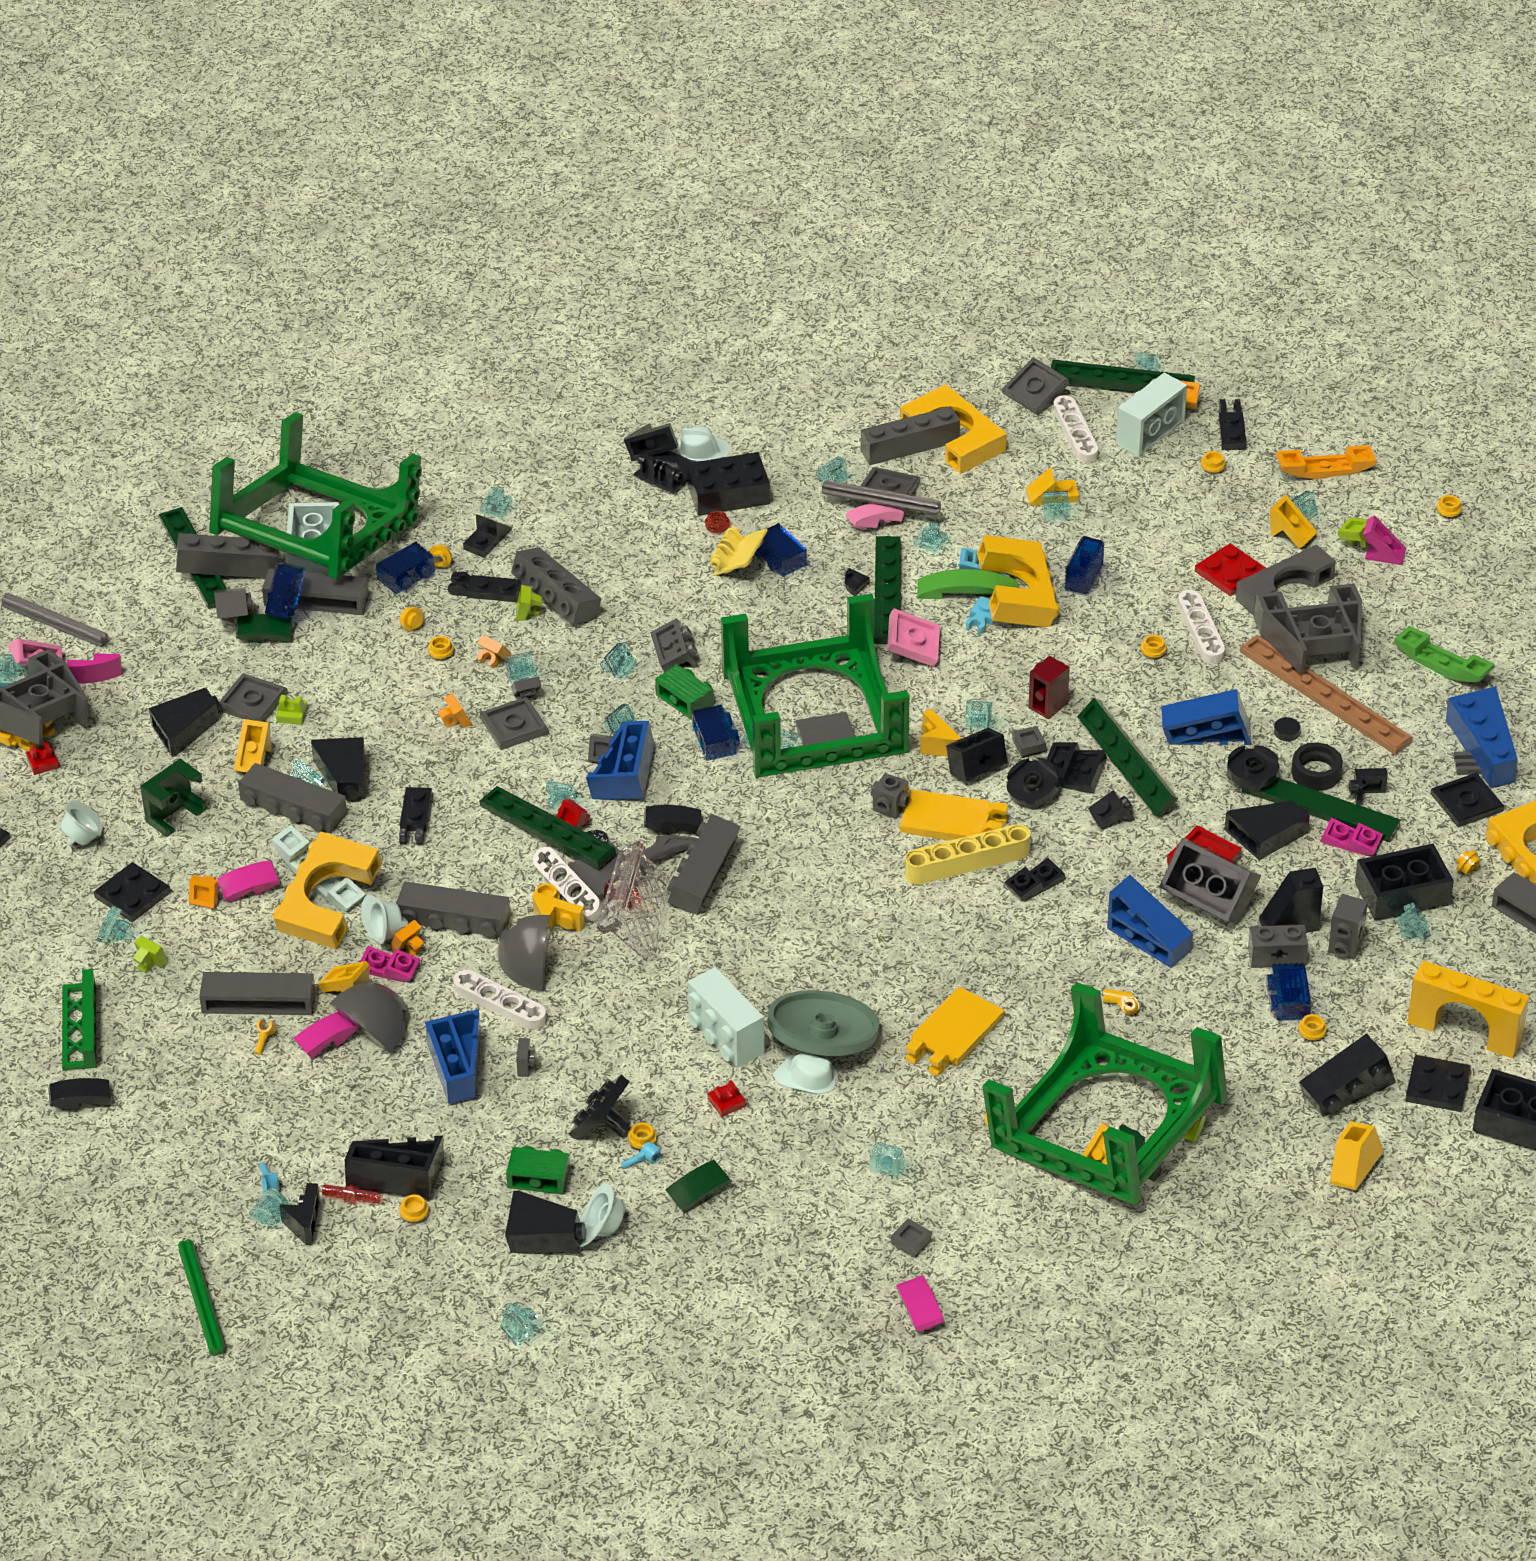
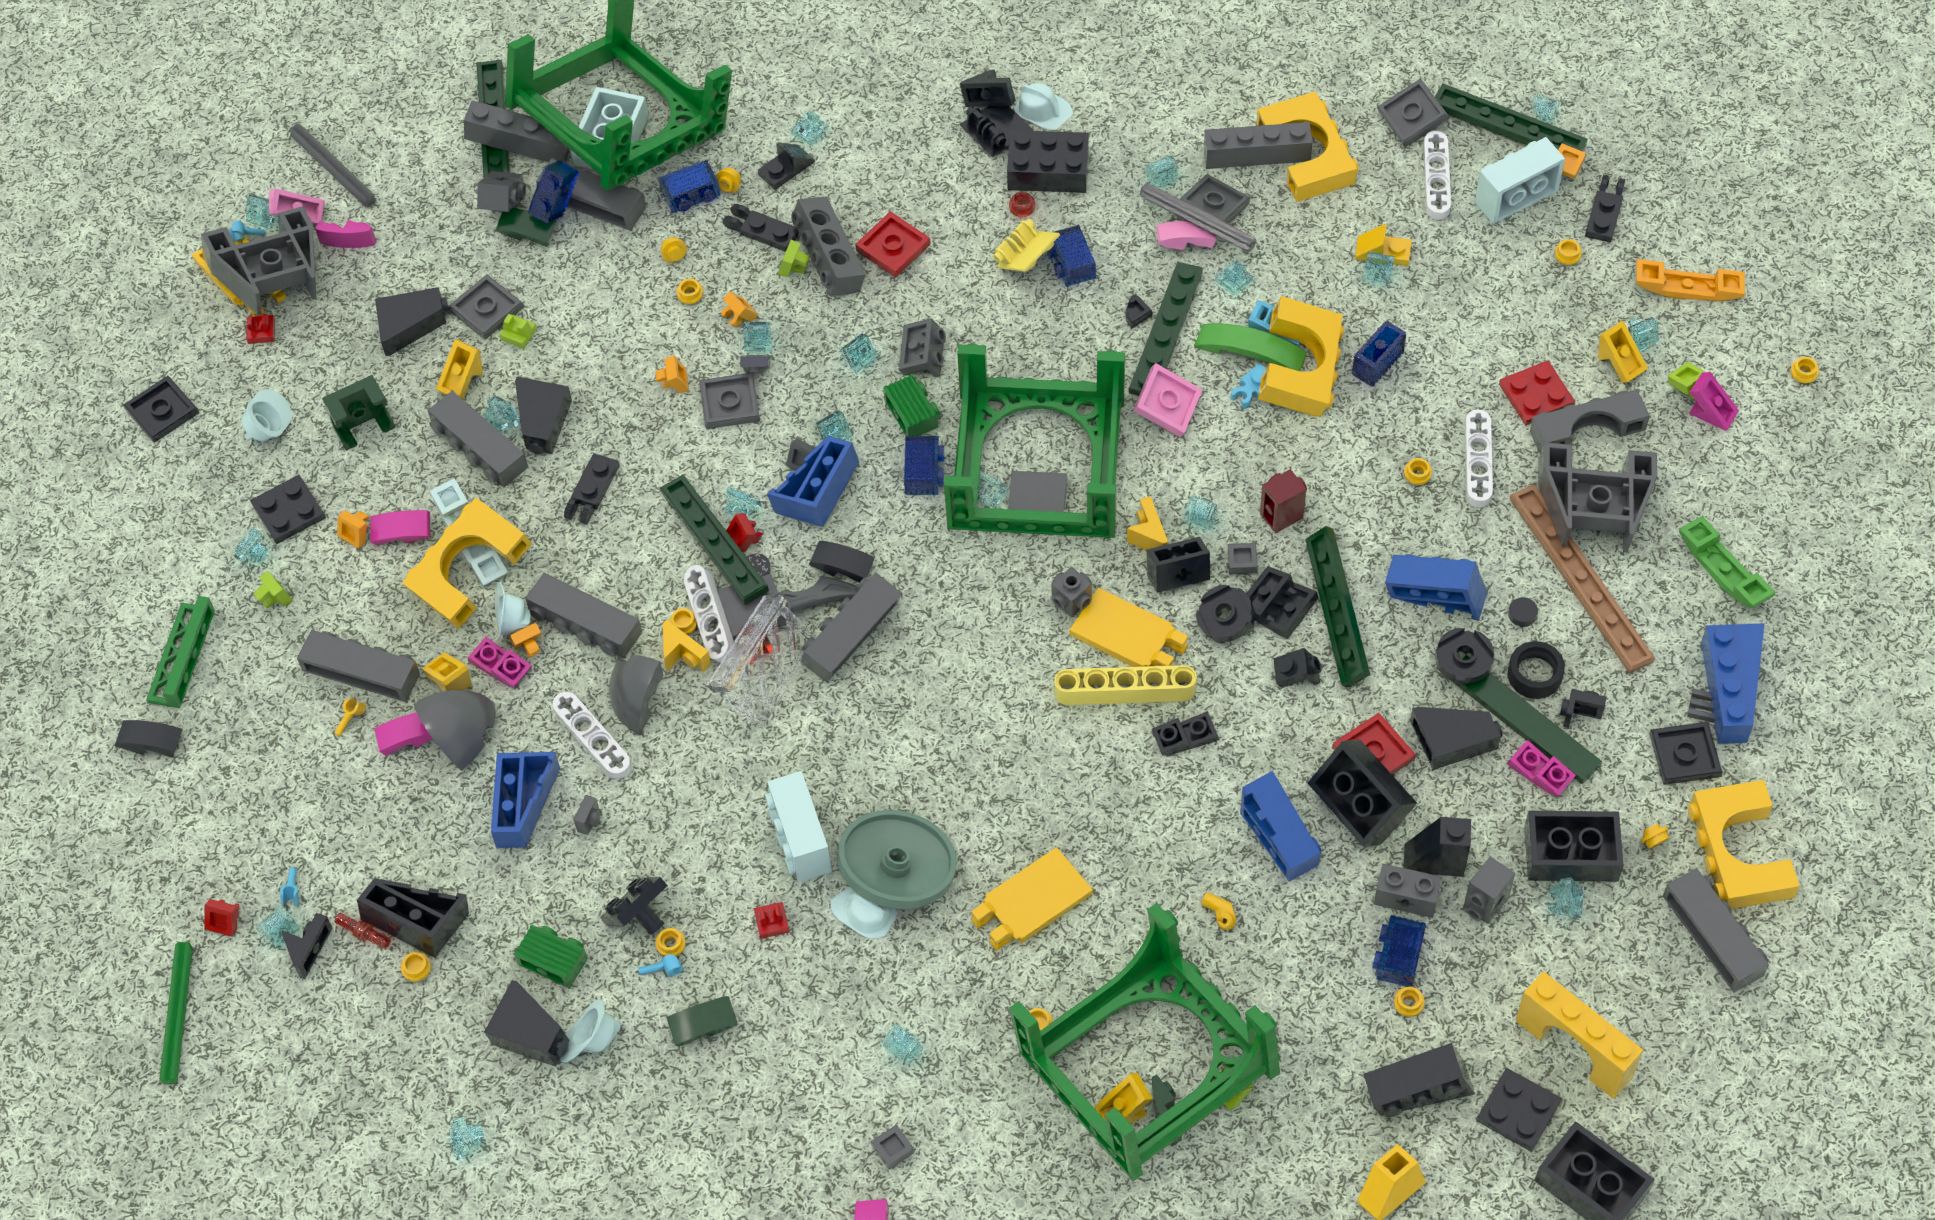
camera: 20 degrees right, 15 degrees up
(213, 1212) = (221, 917): none -> red tile
(613, 574) = (893, 244): none -> red plate

